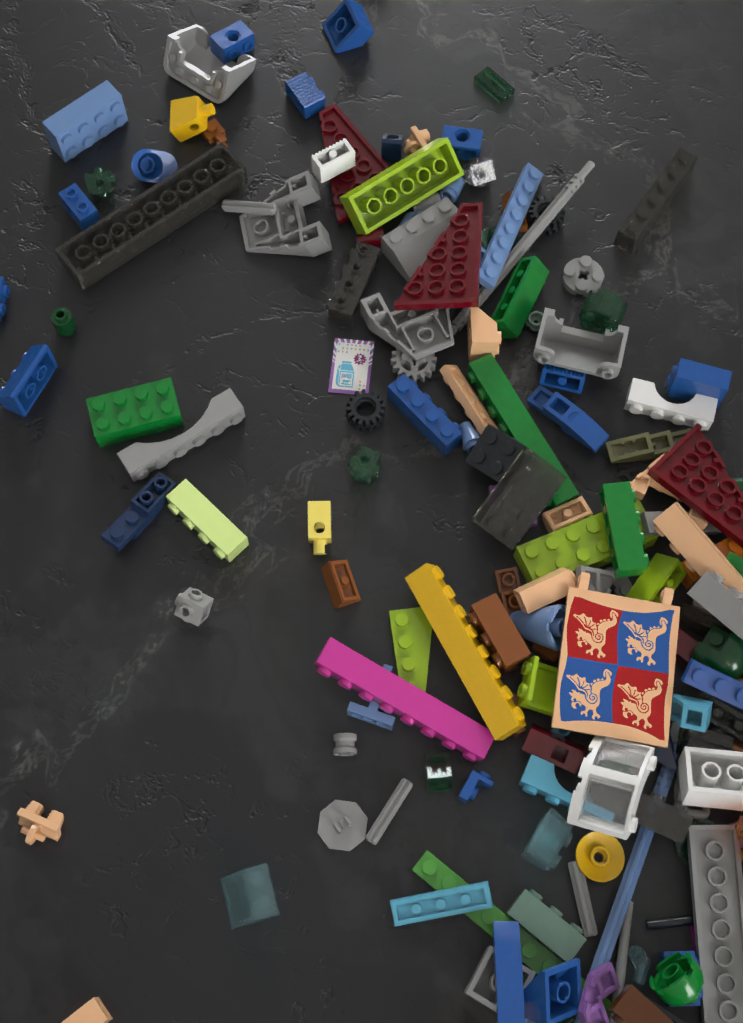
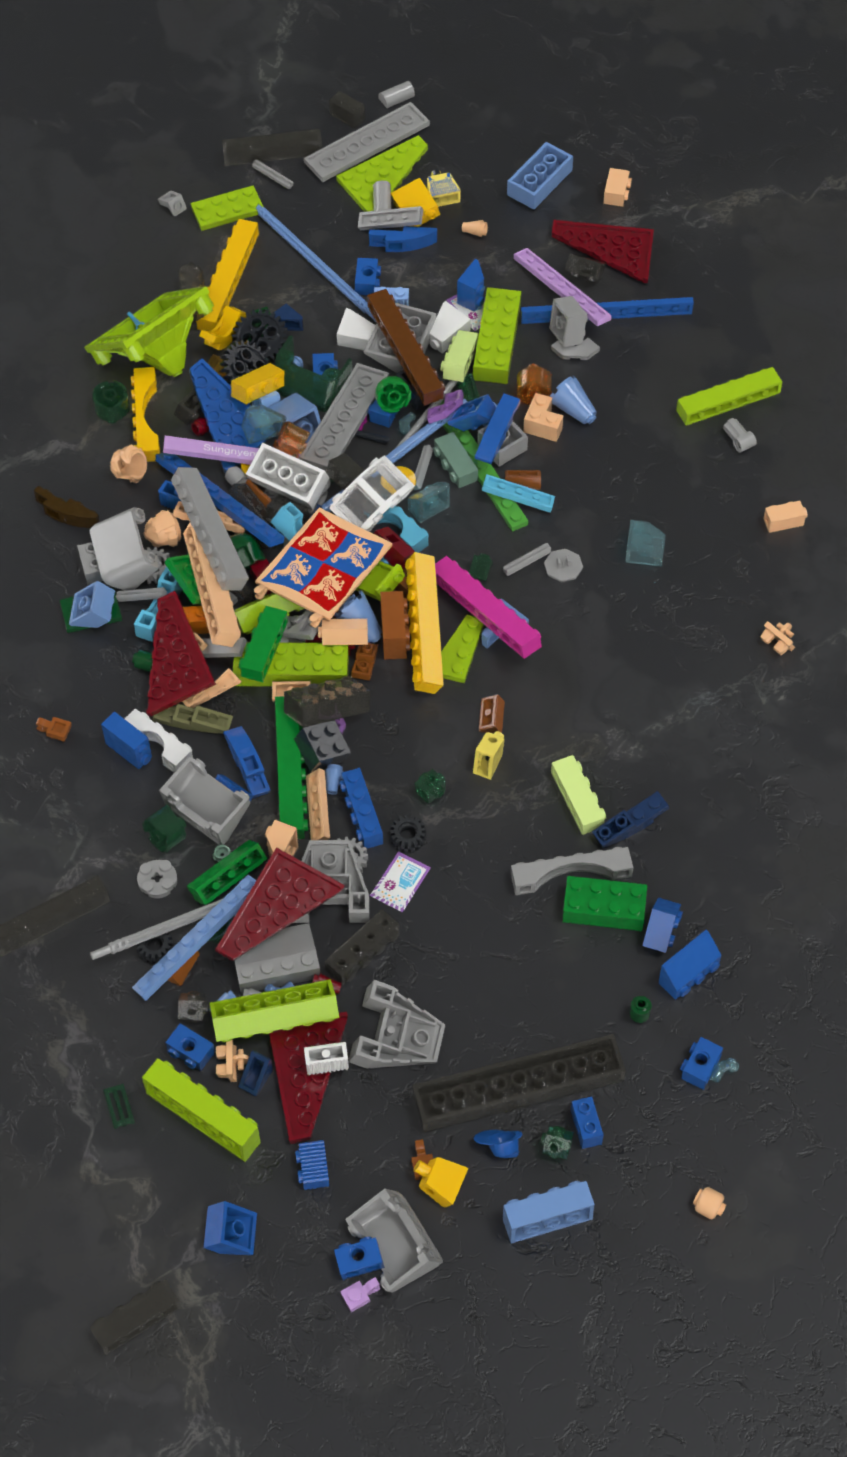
camera: 155 degrees left, 10 degrees down
(66, 410) = (663, 919): none -> brick
(193, 606) = (614, 733): light grey brick -> none
(221, 22) = (357, 1295): none -> lavender plate
(249, 207) = (423, 1055): light grey axle -> none
(345, 744) = (539, 605): light grey wheel -> none
(420, 91) = (202, 1109): none -> lime brick
(448, 939) = (526, 478): none -> dark orange slope
(470, 789) = (462, 550): blue bracket -> none

